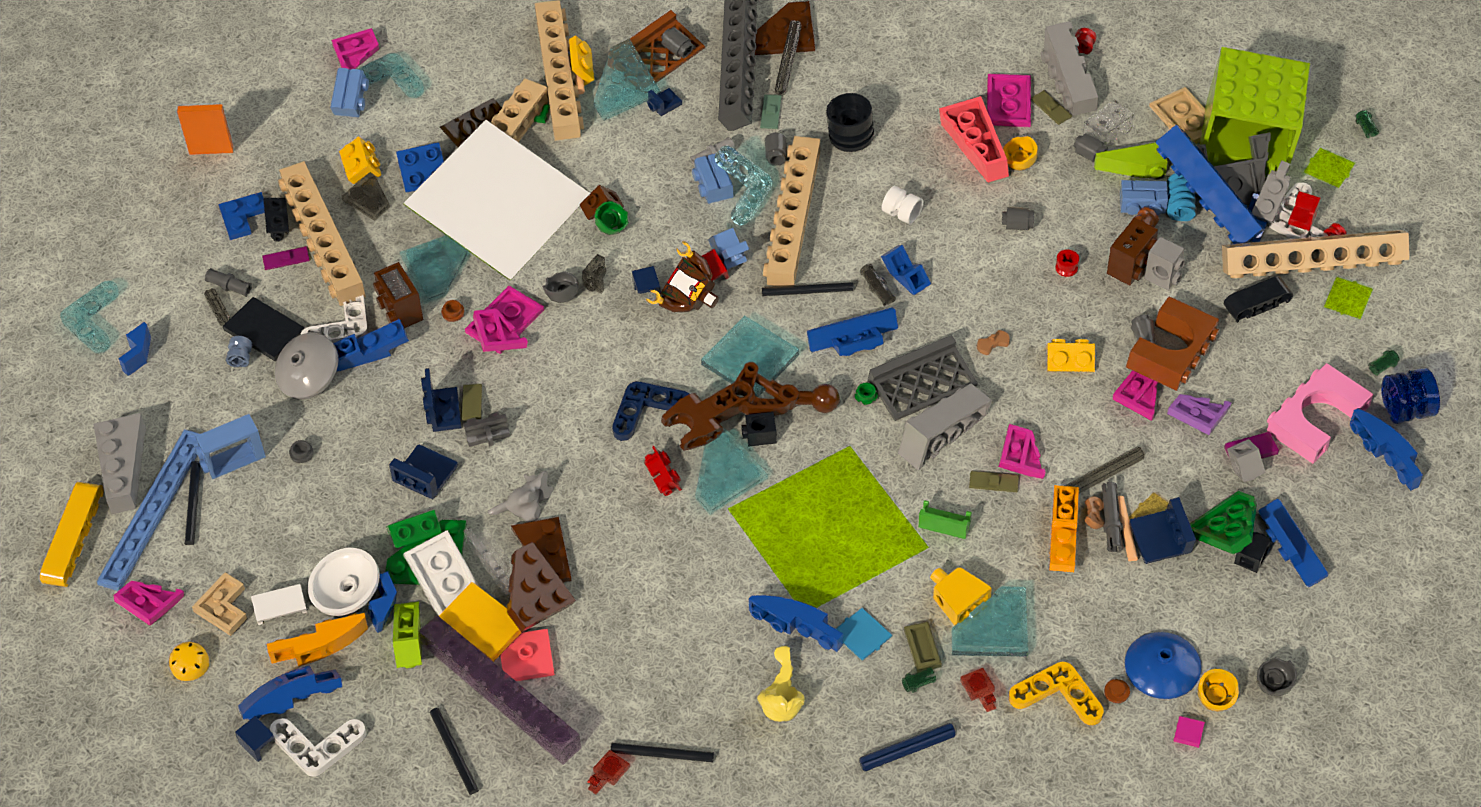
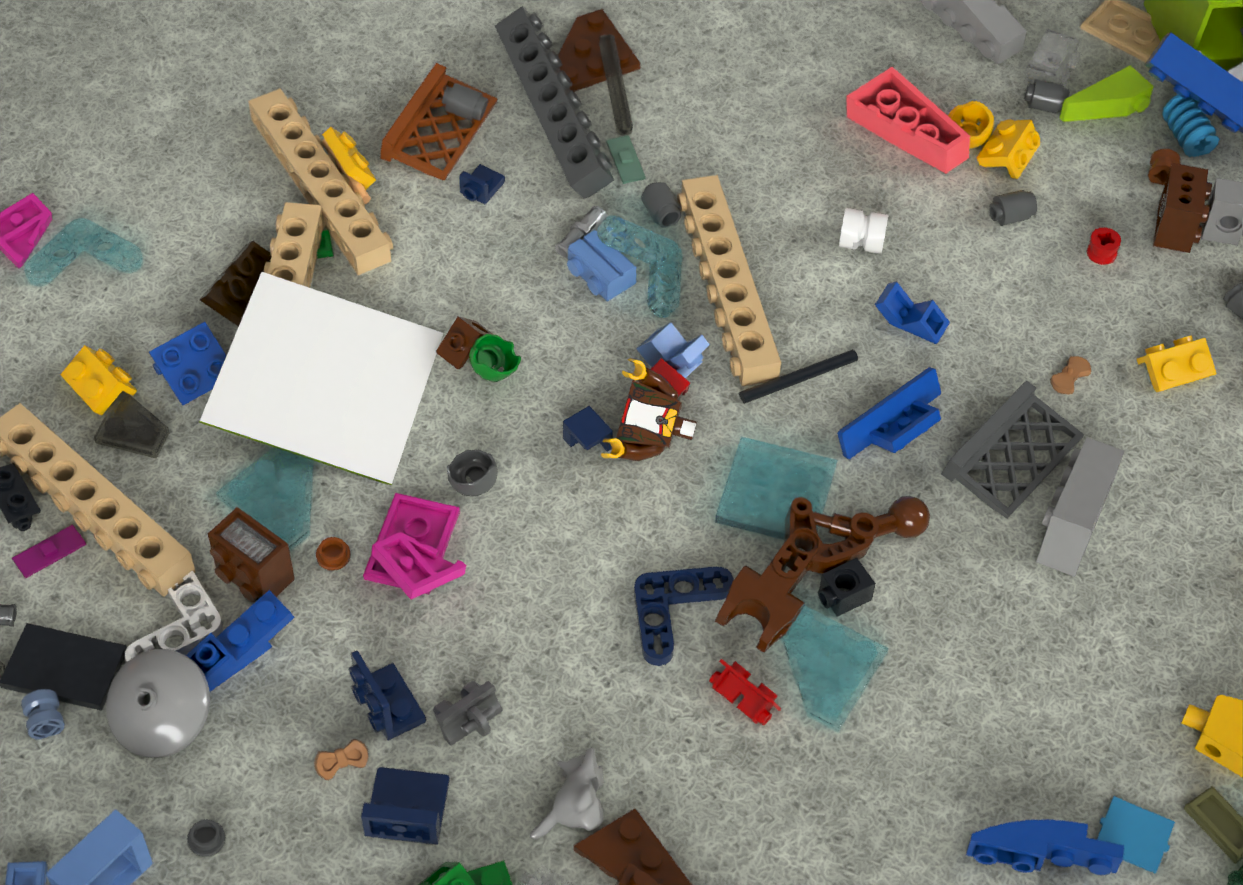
camera: 25 degrees left, 0 degrees up
(349, 92) = (41, 289): medium blue brick -> none
(391, 432) = (328, 763): none -> medium nougat piece
(472, 401) = (425, 677): olive piece -> none
(594, 274) = (508, 445): clear smoke bracket -> none
(623, 81) = (417, 172): clear light blue plate -> none
(827, 528) = (1004, 700): clear neon green piece -> none
(850, 122) = (743, 143): black wheel -> none
(866, 388) = (954, 486): green plate -> none
(877, 284) = (887, 343): clear smoke pin -> none
(944, 521) = (1153, 636): bright green hinge -> none
(994, 481) = (1178, 560): olive piece -> none
(1009, 100) = (915, 60): dark pink tile -> none
(1020, 452) = (1191, 510): dark pink wing -> none
(1043, 177) = (1010, 146): none -> yellow bracket
(1051, 107) = (967, 61): olive piece -> none
(1142, 194) = (1141, 137): medium blue brick -> none

